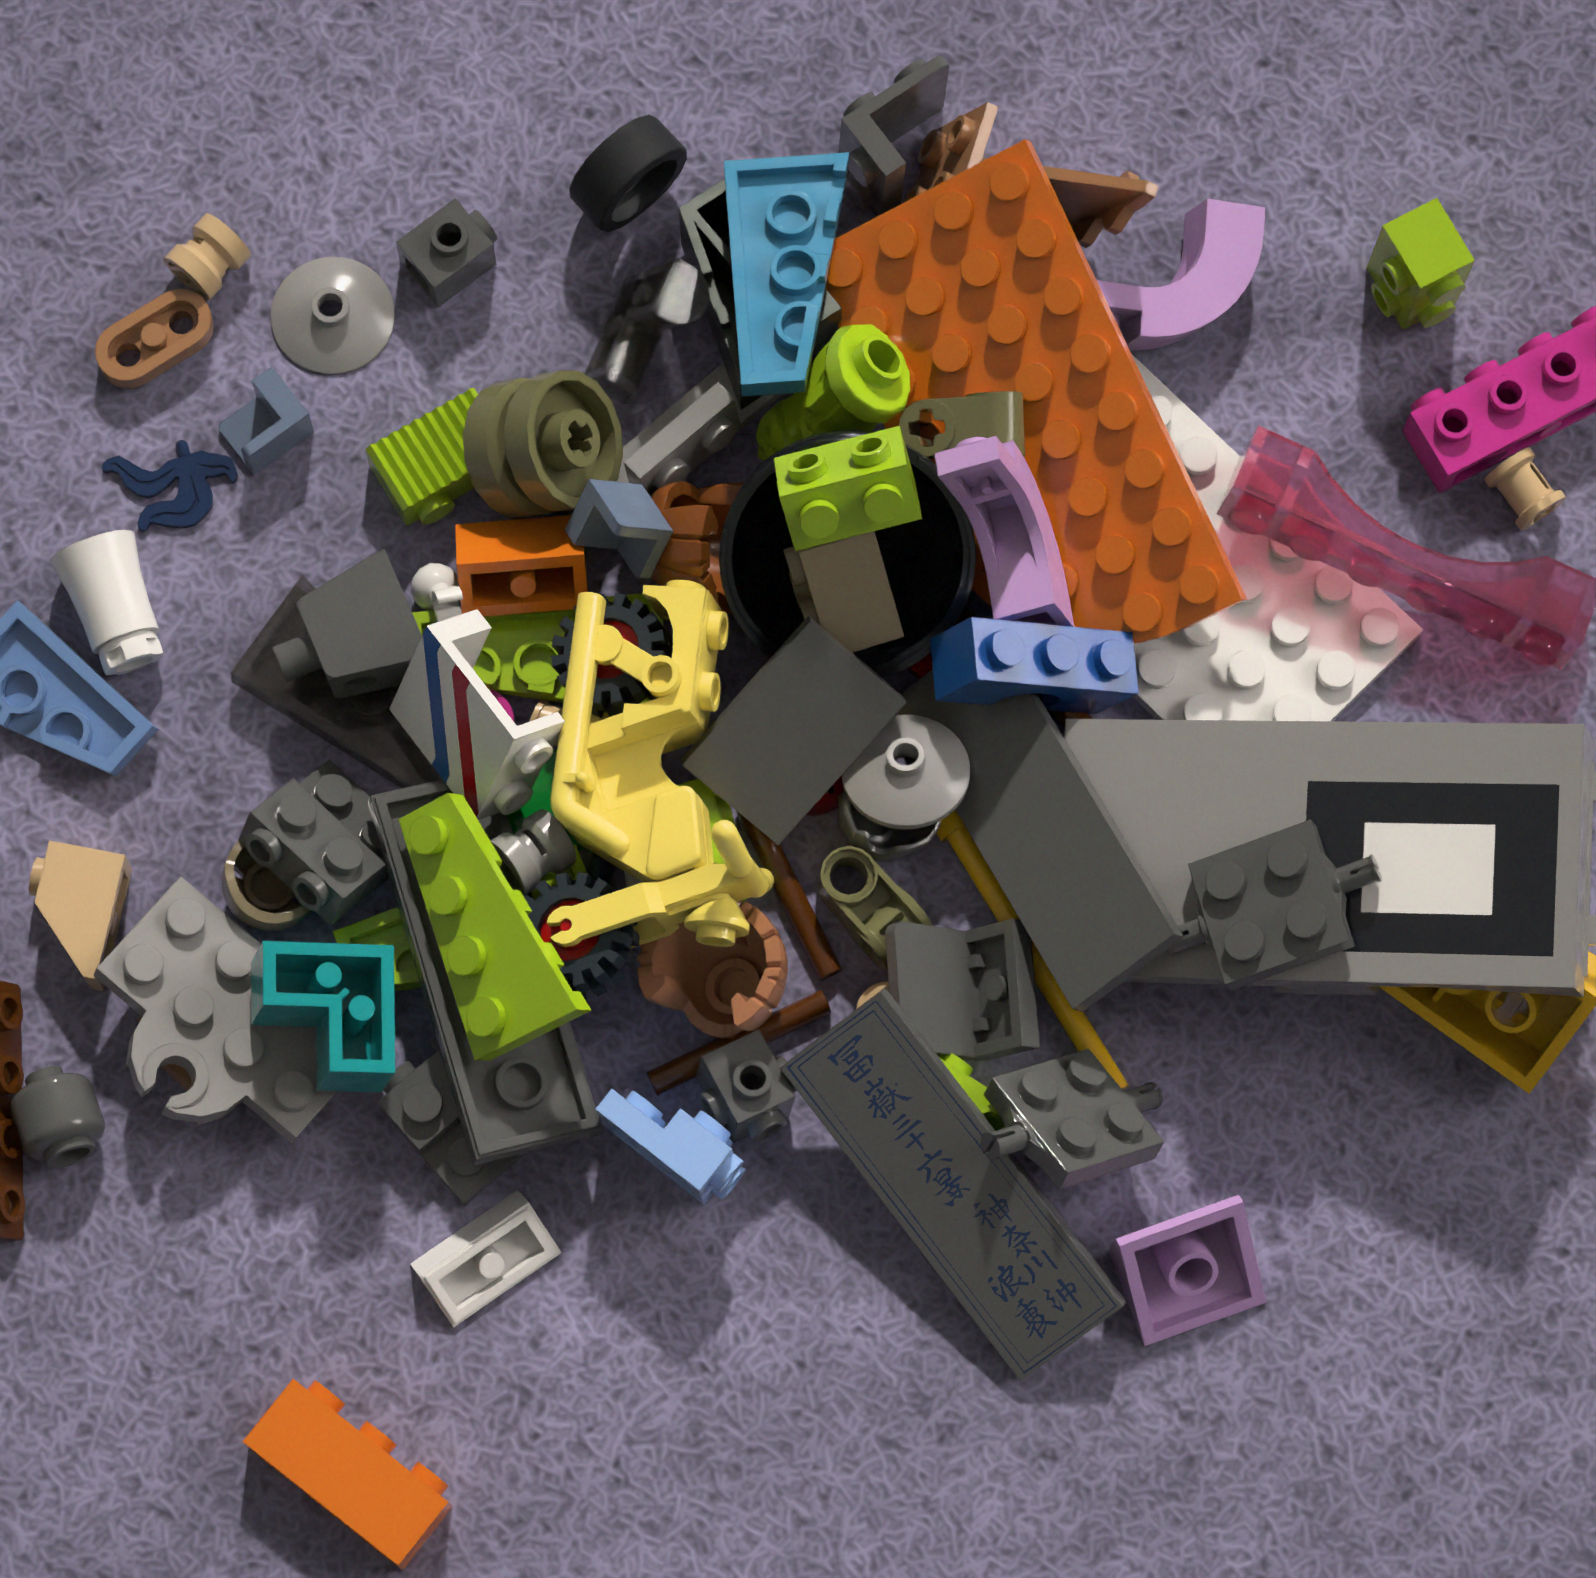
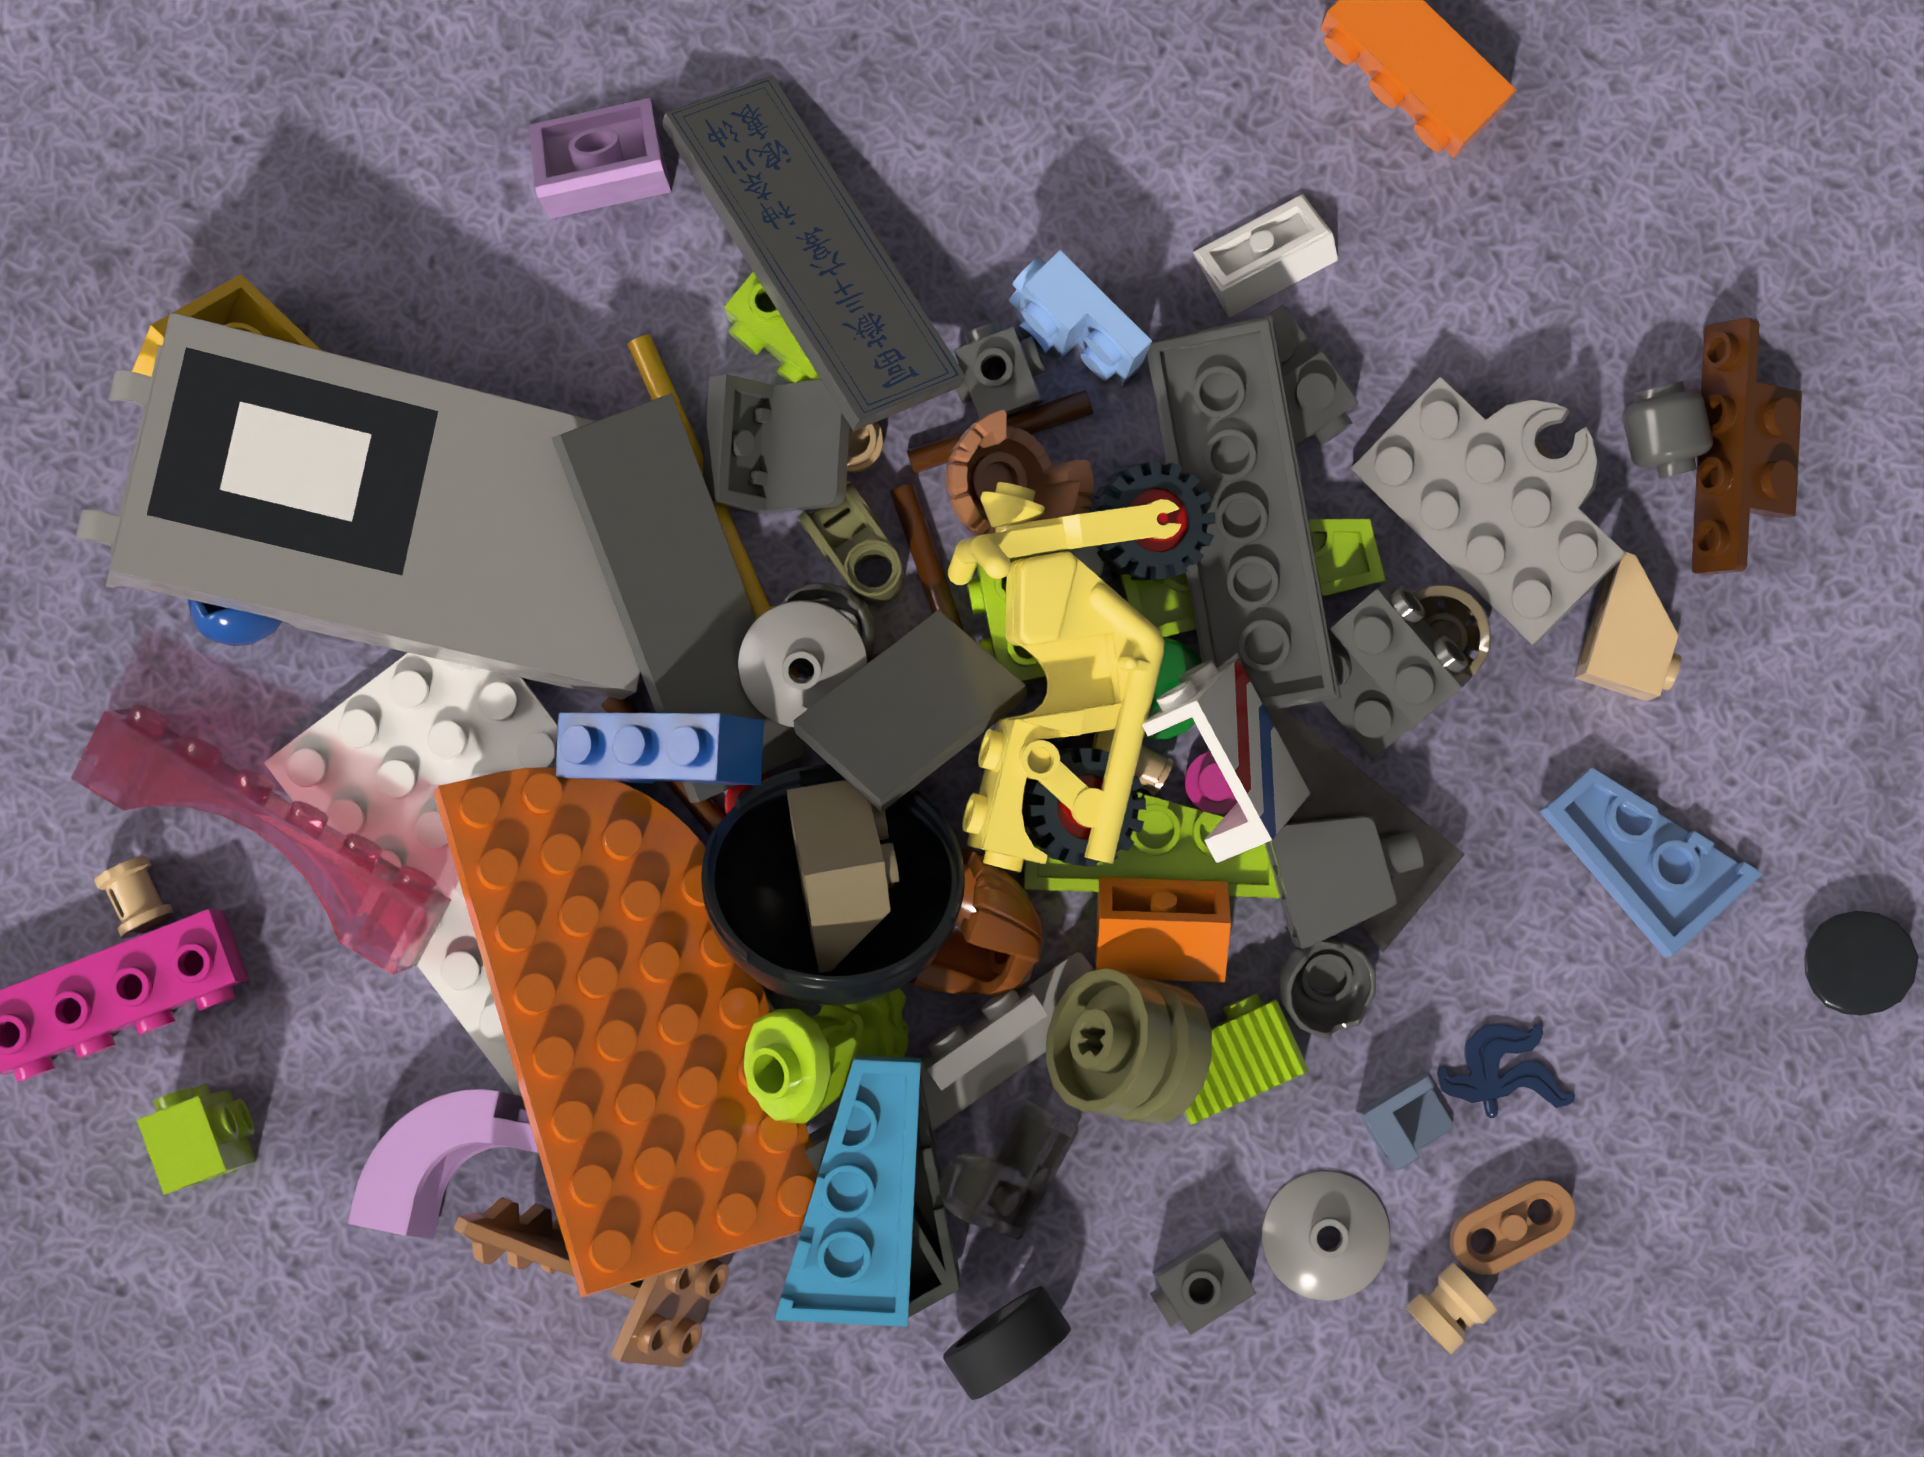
camera: 170 degrees left, 10 degrees up
(111, 600) = (1577, 944): white plant -> none
(341, 993) = (1382, 492): teal brick -> none
(359, 513) = (1329, 966): none -> dark grey hair
(437, 589) = (1250, 920): white arm -> none
(493, 955) = (1237, 502): lime wing -> none
(534, 851) = (1199, 609): light grey wheel -> none
(621, 519) = (1052, 949): sand blue panel -> none
(847, 488) = (828, 917): lime brick -> none
(875, 122) = (751, 1316): dark grey bracket -> none
(965, 417) = (681, 996): olive piece -> none
(1011, 529) = (660, 873): lavender arch -> none
(1072, 1119) = (687, 296): dark grey plate -> none
(1272, 904) = (456, 454): dark grey plate -> none

